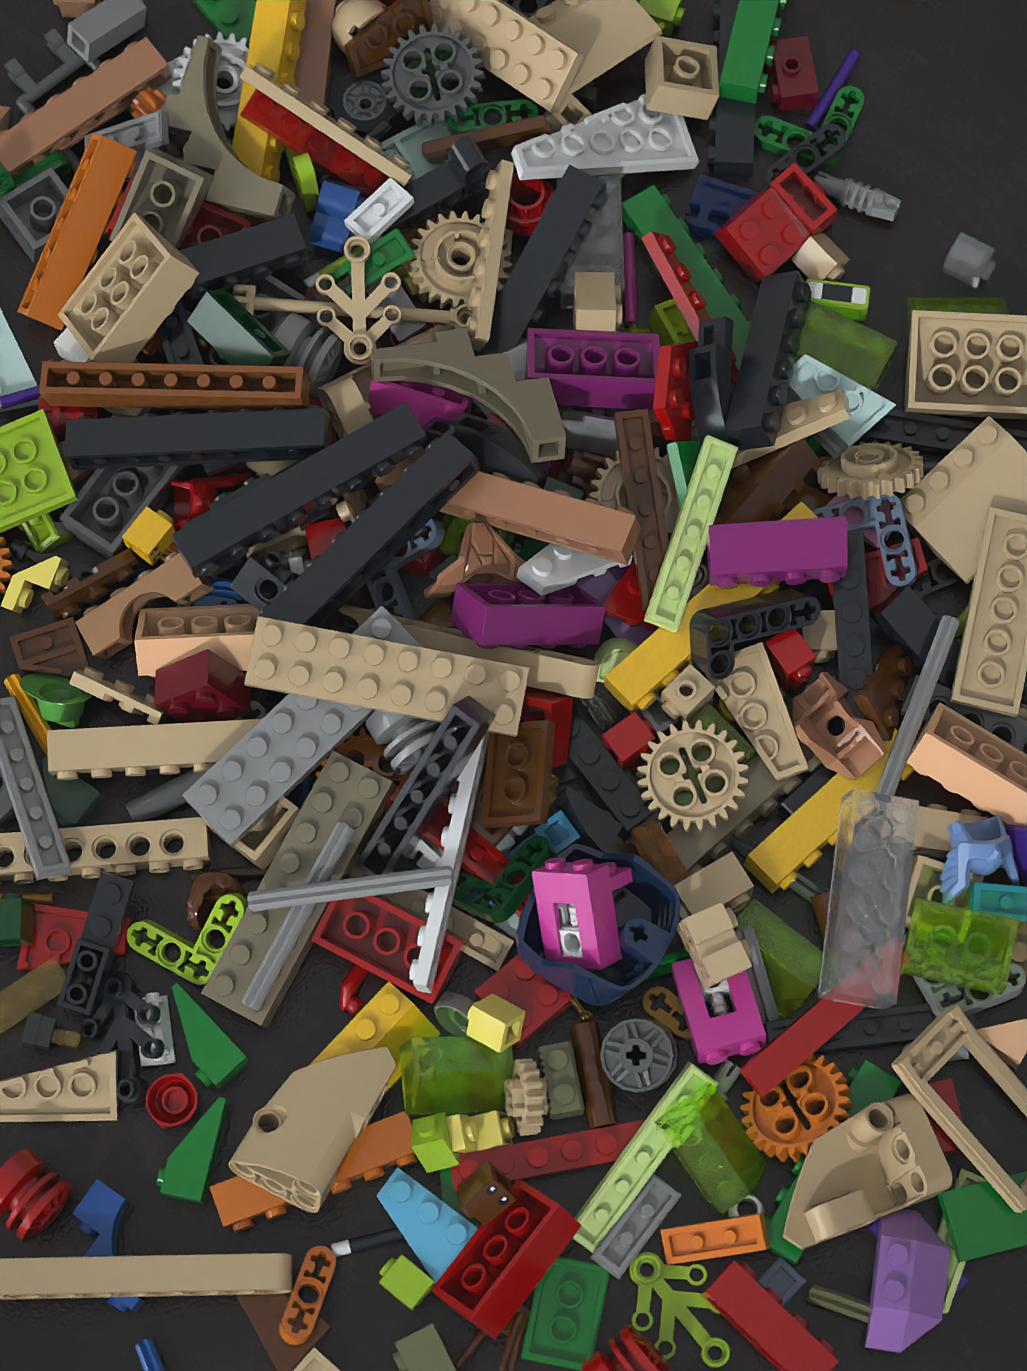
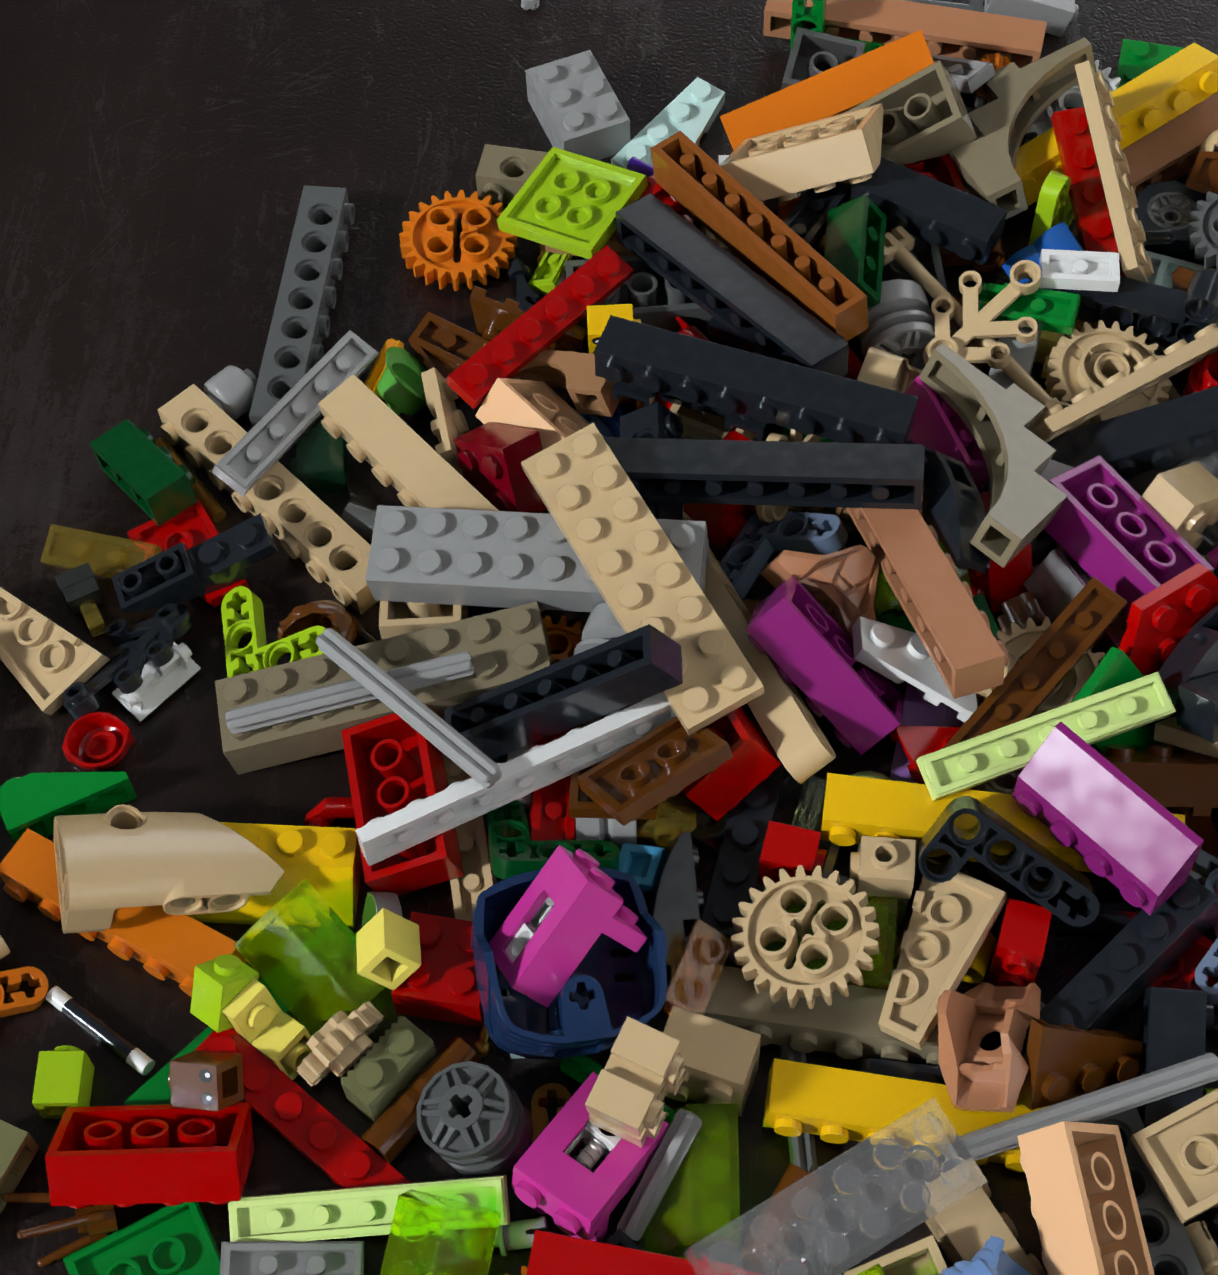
camera: 50 degrees right, 15 degrees down
(47, 574) = (497, 286): light yellow slope -> none
(108, 578) = (540, 326): none -> red plate
(209, 1046) = (177, 728): green slope -> none
(425, 1222) = (138, 1050): medium azure wing -> none
(821, 636) = (1068, 955): tan brick -> none

